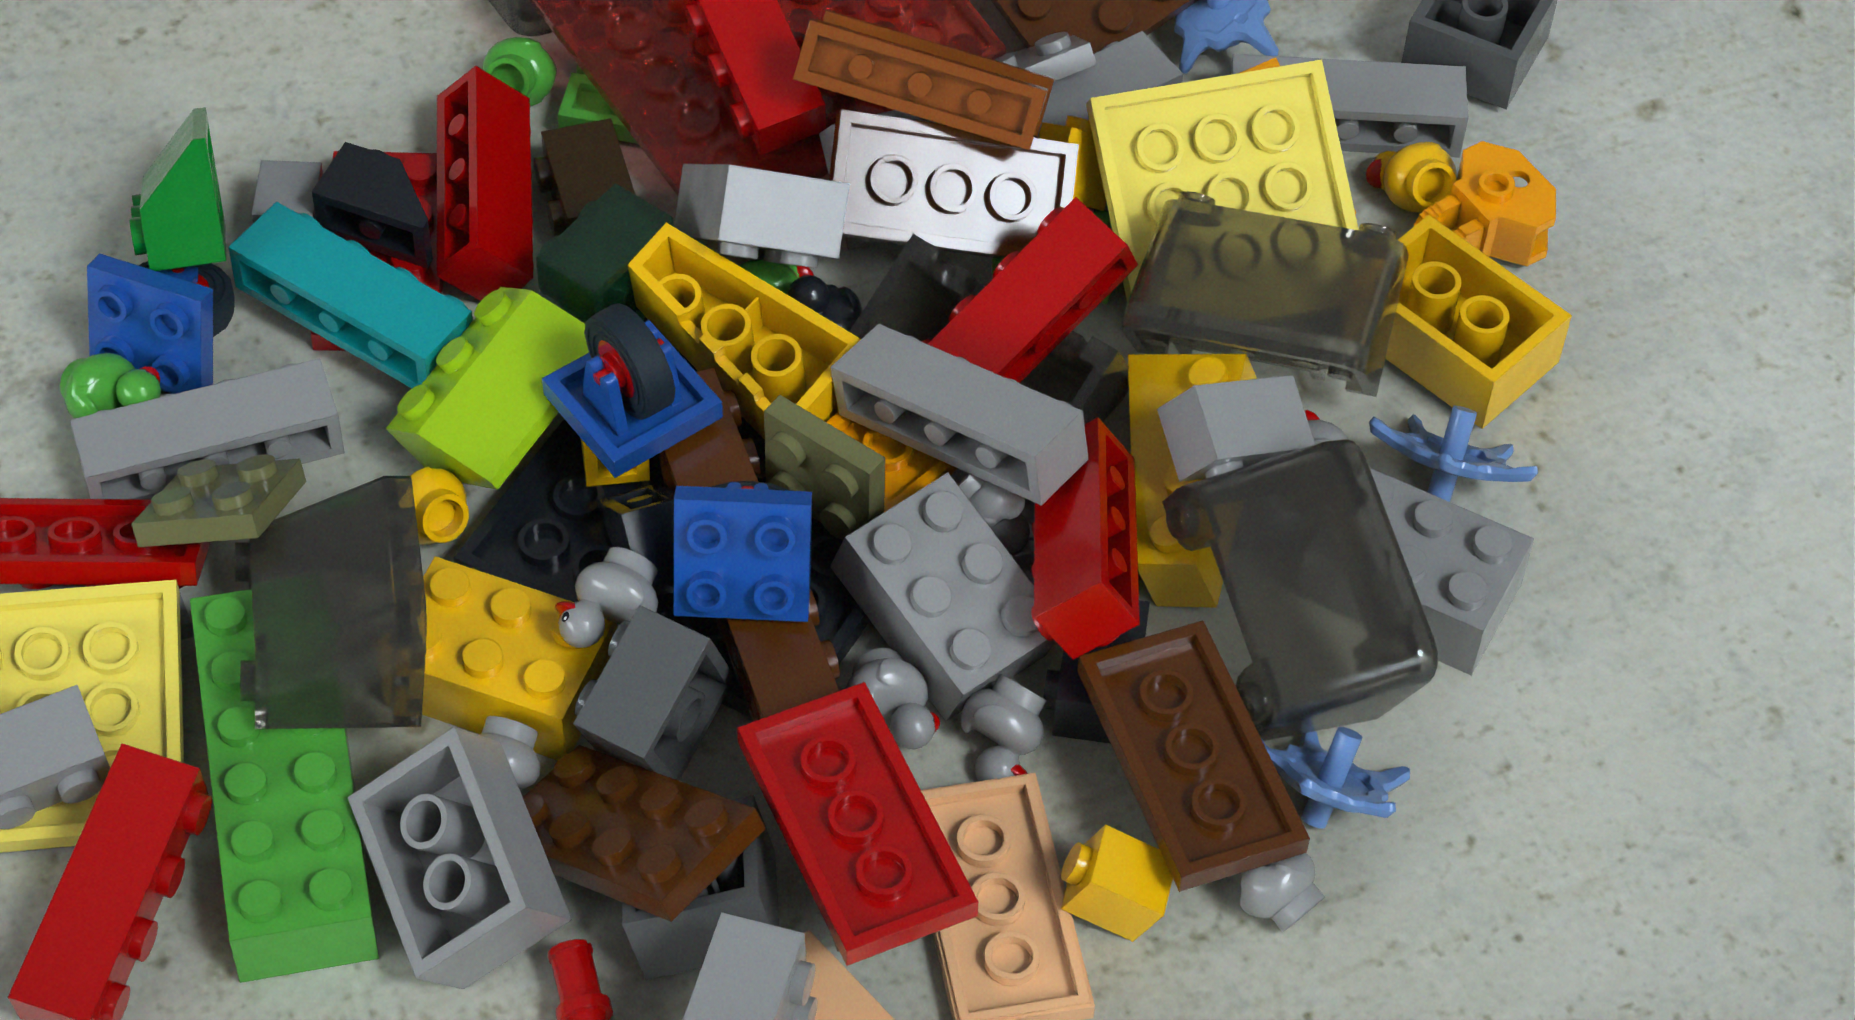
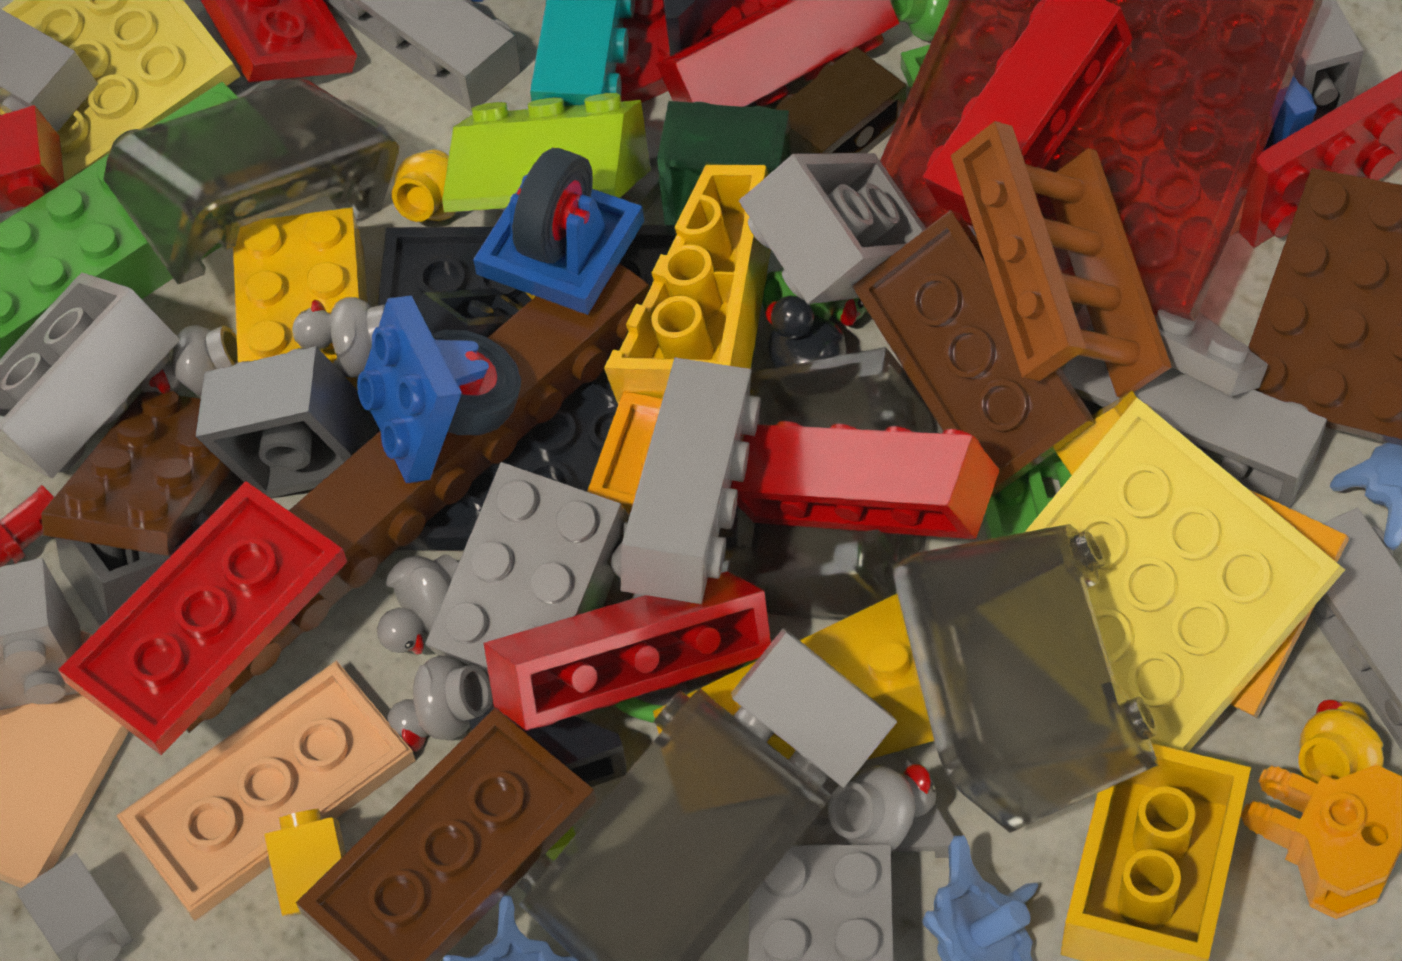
camera: 70 degrees right, 5 degrees up
(219, 501) = (323, 49): olive plate -> none
(820, 459) = (583, 411): olive plate -> none

